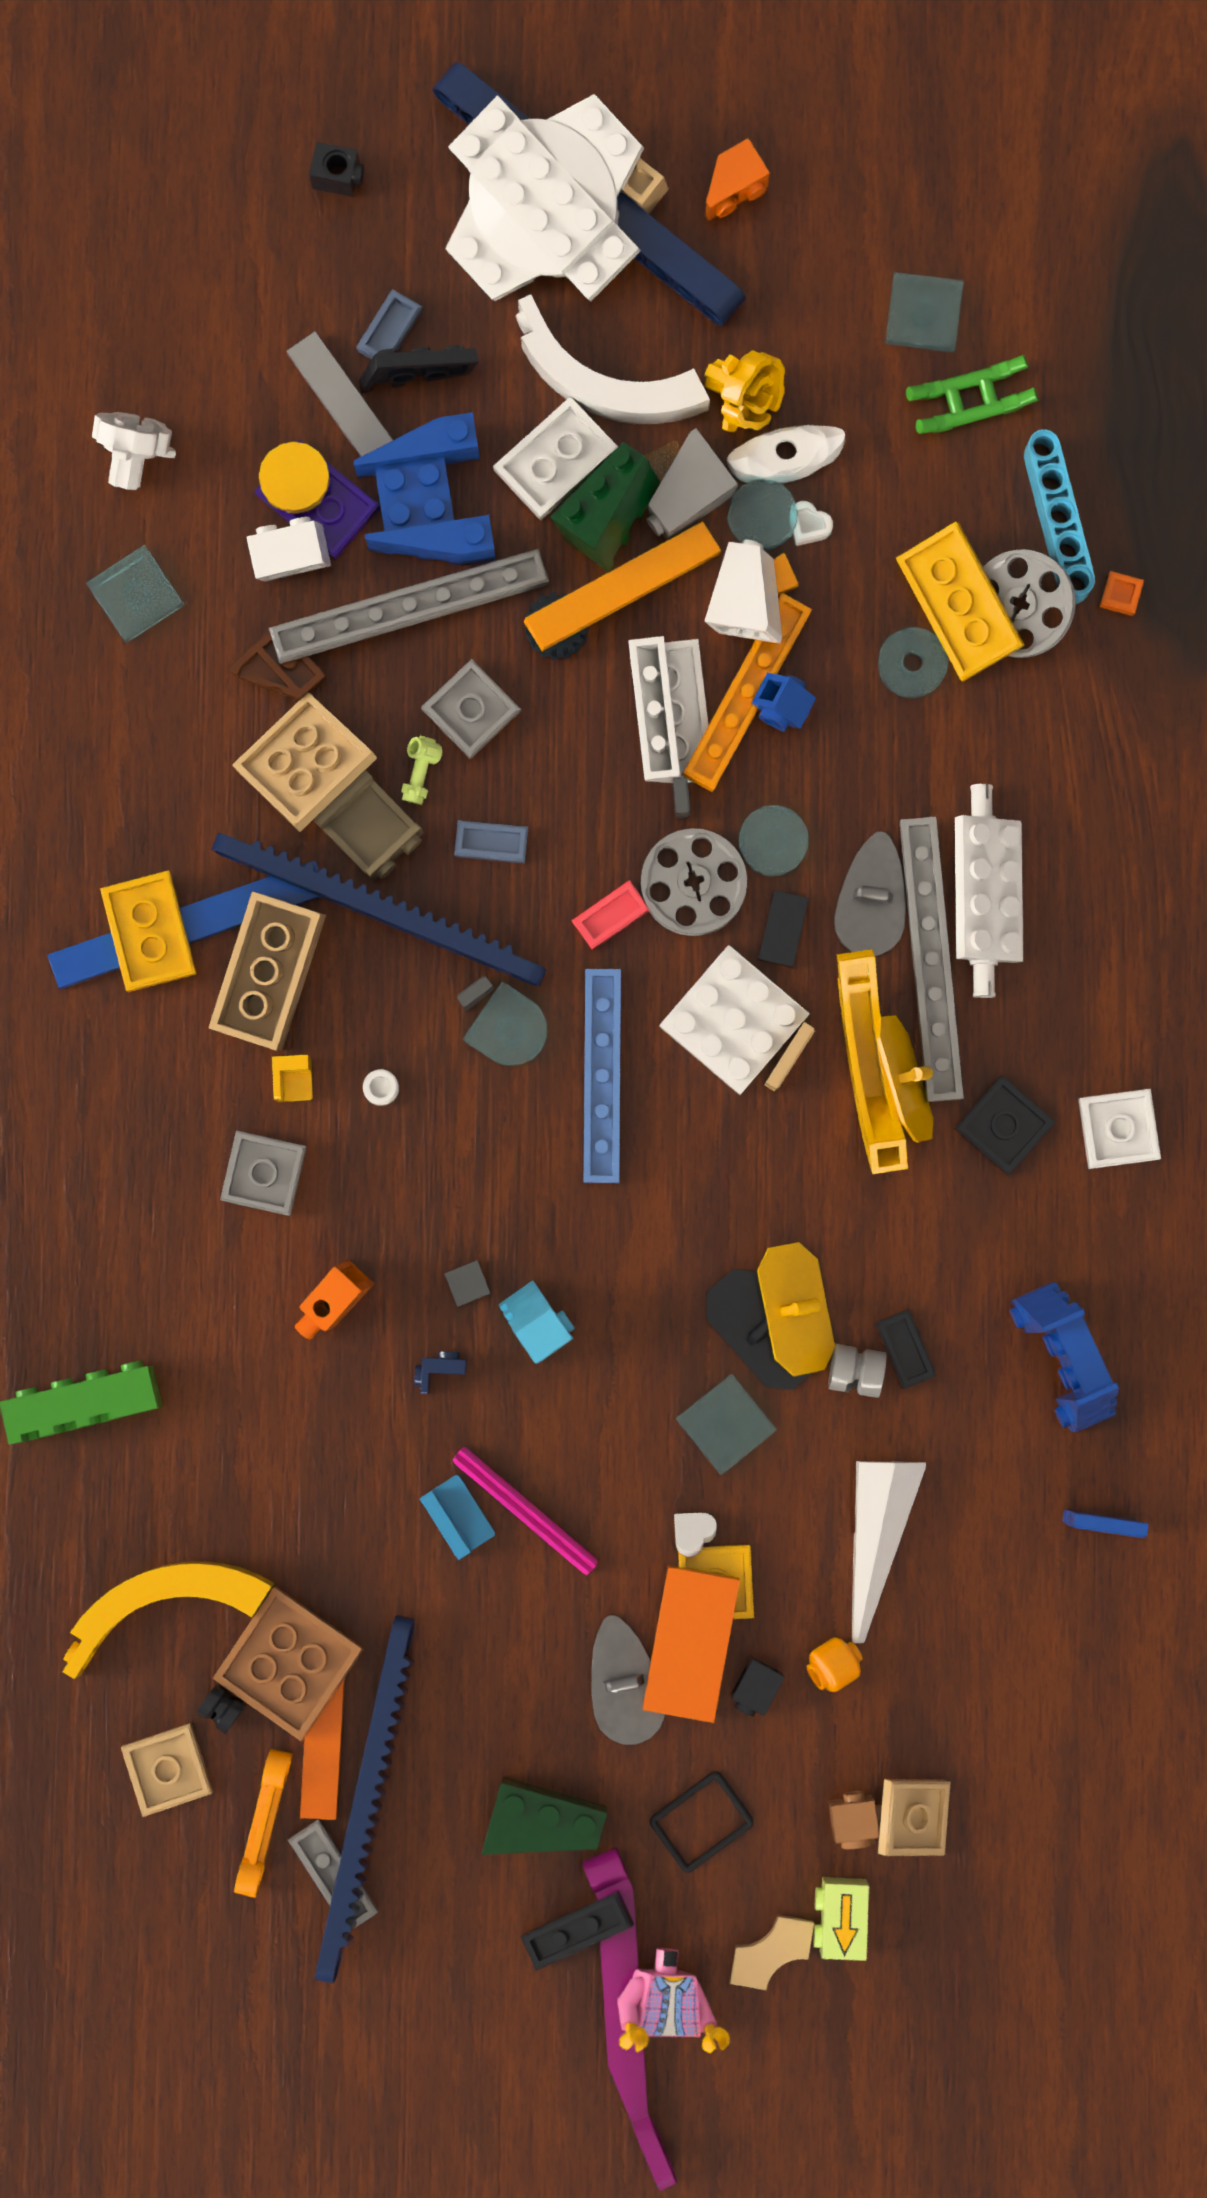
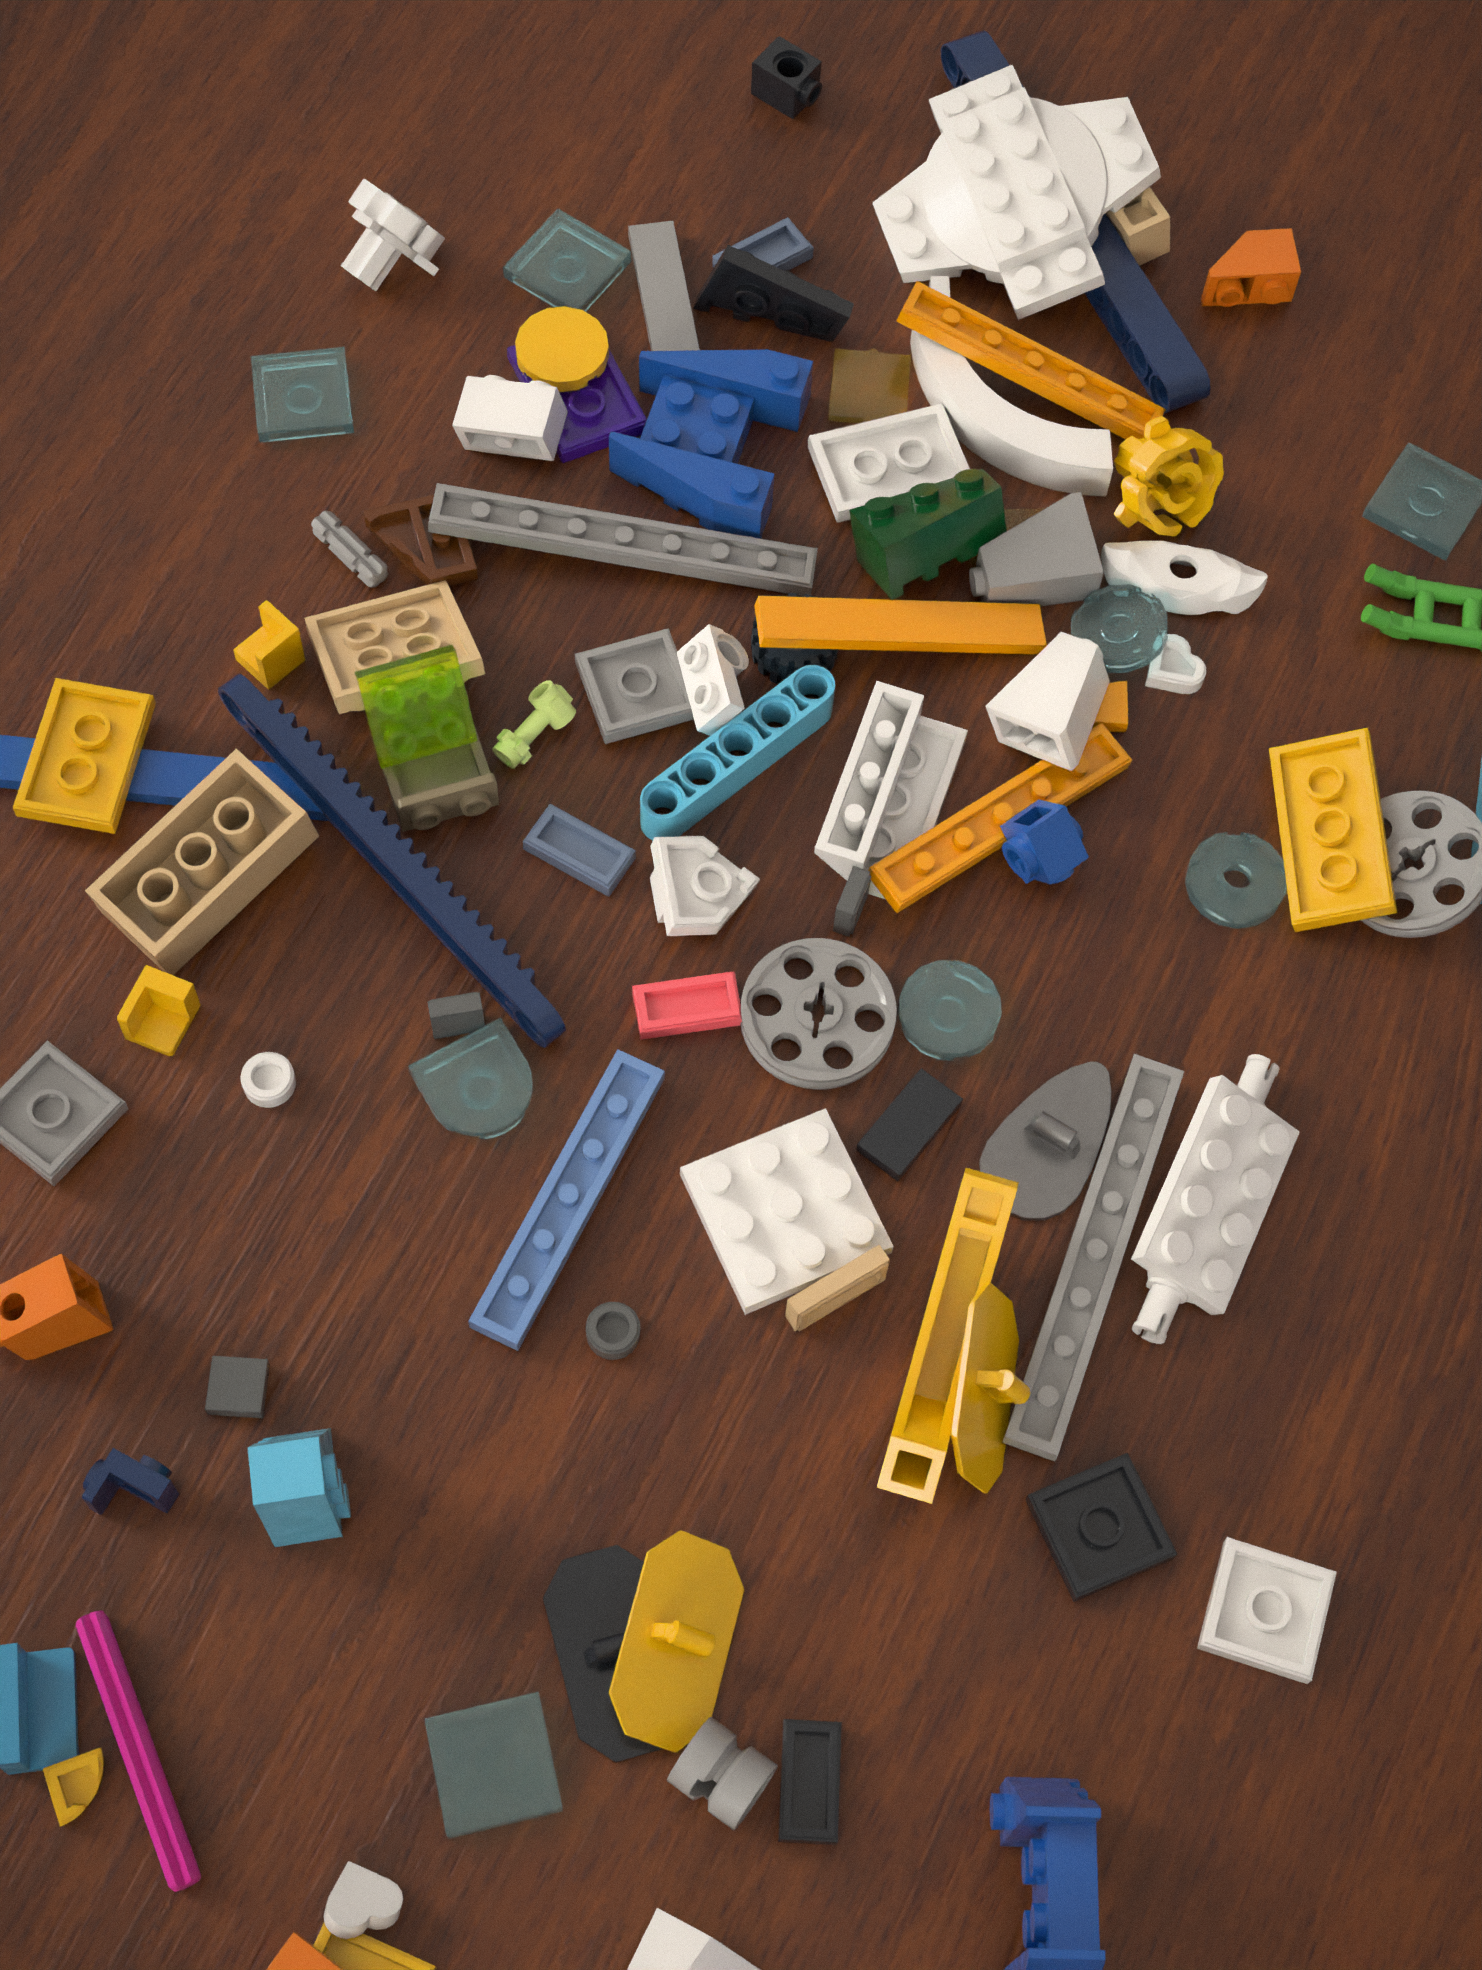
camera: 20 degrees right, 20 degrees down
(221, 797) = (272, 649): none -> yellow panel
(231, 697) = (349, 549): none -> light grey axle
(259, 401) = (567, 263): none -> clear light blue tile
(346, 802) = (416, 706): none -> clear neon green tile
(501, 1545) = (74, 1783): none -> yellow tile
(512, 400) = (868, 385): none -> clear yellow piece
(515, 680) = (710, 673): none -> white plate
(560, 711) = (744, 733): none -> medium azure beam
(578, 834) = (696, 885): none -> white plate
(617, 339) = (1027, 362): none -> light orange tile
(668, 1144) = (613, 1330): none -> dark grey tile

